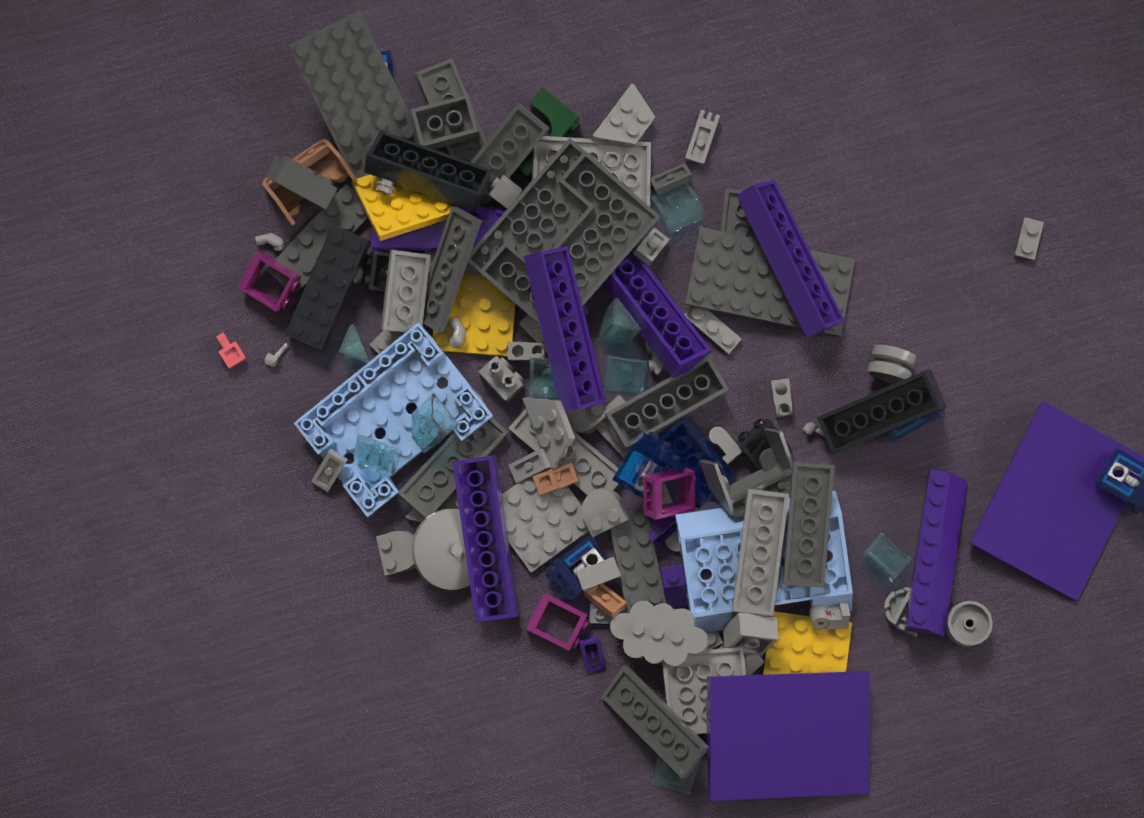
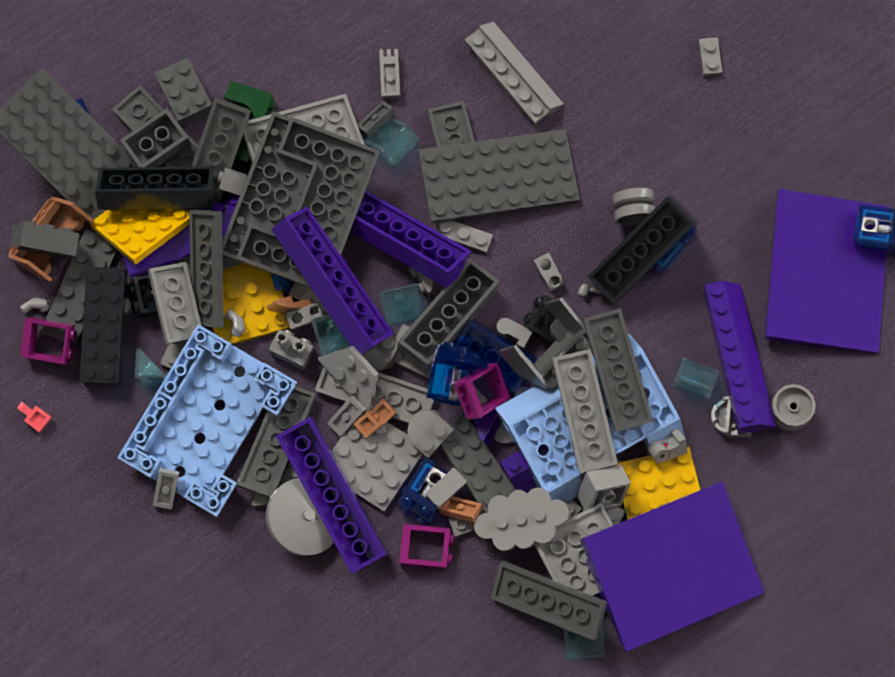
camera: 25 degrees left, 5 degrees down
(272, 360) = (76, 410): light grey hand -> none
(377, 454) = (204, 456): clear light blue slope -> none
(385, 187) = (122, 215): light grey plate -> none
(396, 551) = (255, 539): light grey slope -> none
(431, 423) = (244, 409): clear light blue slope -> none
(492, 82) = (184, 92): none -> dark grey brick
(512, 334) = (286, 305): none -> nougat slope
(514, 310) = (281, 284): none -> blue plate
(592, 655) = (468, 563): dark purple slope -> none
(618, 325) = (378, 262): clear light blue slope -> none
(626, 120) = (317, 82): light grey wing -> none
(651, 246) = (381, 183): light grey plate -> none
(790, 258) = (508, 147): dark purple slope -> none
(825, 182) = (513, 72): none -> light grey slope

